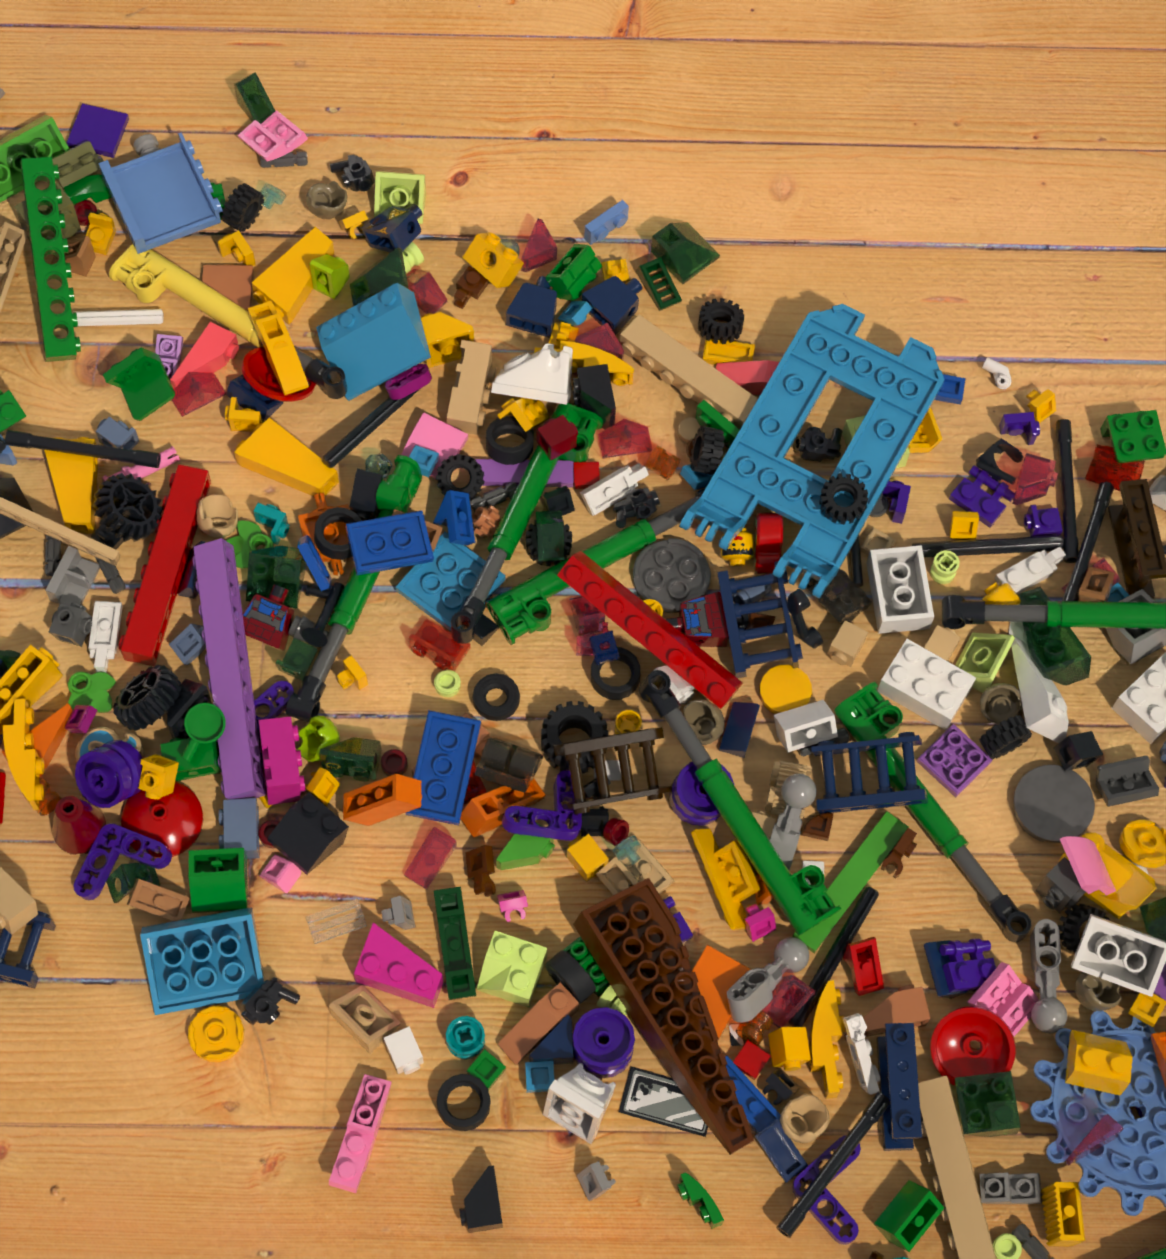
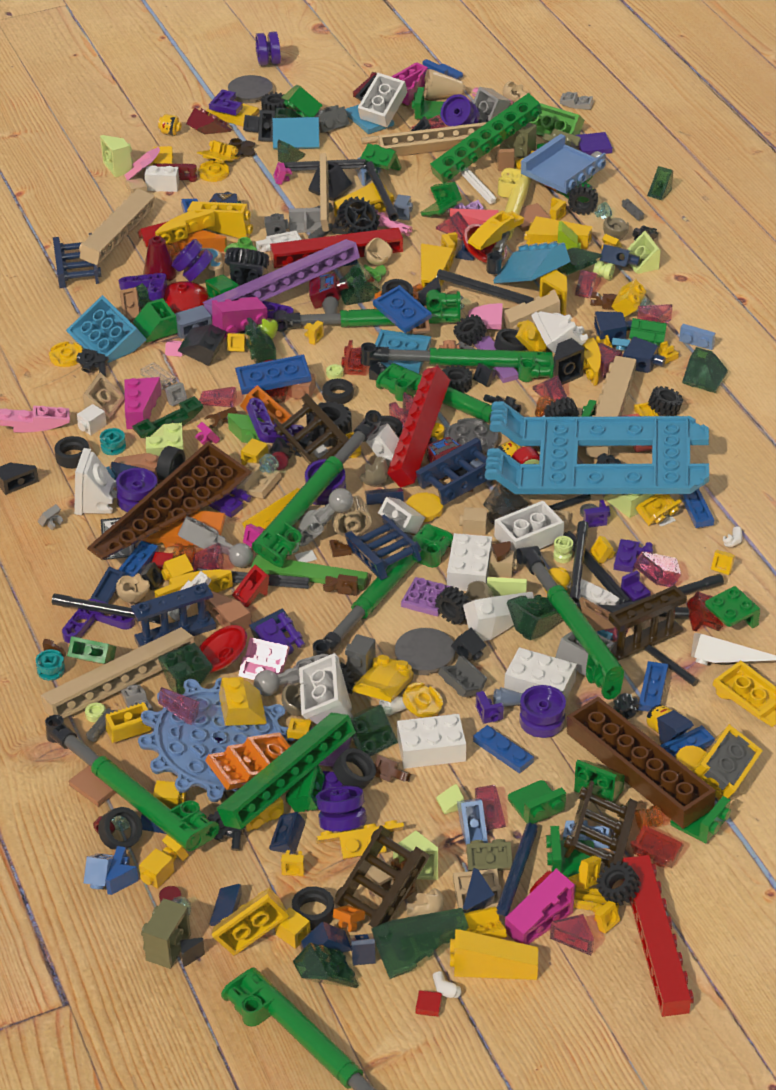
camera: 70 degrees right, 25 degrees down
(80, 719) = (221, 245): magenta tile -> none
(157, 776) = (200, 274): yellow brick -> none
(204, 725) = (238, 275): green piece -> none
(272, 517) = (393, 273): teal bracket -> none
(273, 137) = (639, 198): bright pink slope -> none
(297, 659) = (311, 309): clear green bracket -> none
(314, 562) = (371, 291): blue tile -> none
(315, 635) = (327, 305): black piece -> none
(382, 800) = (235, 354): orange brick -> none
(408, 381) = (516, 288): magenta beam -> none
(425, 458) = (468, 309): dark azure plate -> none
(457, 516) = (440, 333): blue slope -> none
(486, 1069) = (101, 452): green plate -> none
(508, 764) = (289, 398): clear smoke plate -> none
(550, 535) = (457, 368): clear green slope -> none
(557, 436) = (520, 348): dark red brick -> none
(585, 474) = (514, 383): red tile -> none
(607, 655) = (393, 410): clear blue piece -> none
(612, 488) = (505, 389): white hinge -> none
(659, 266) = (675, 362): dark green slope -> none
(695, 1193) = (61, 561): green slope -> none
(797, 603) = (475, 472): black bar -> none
(843, 484) = (565, 469): black tyre -> none
(937, 535) = (582, 534): none -> black piece
(939, 639) = (501, 550): none -> reddish brown tile
(987, 462) = (665, 543): black helmet -> none
(1019, 423) = (700, 556): dark purple bracket -> none
(1087, 865) = (374, 649): bright pink slope -> none

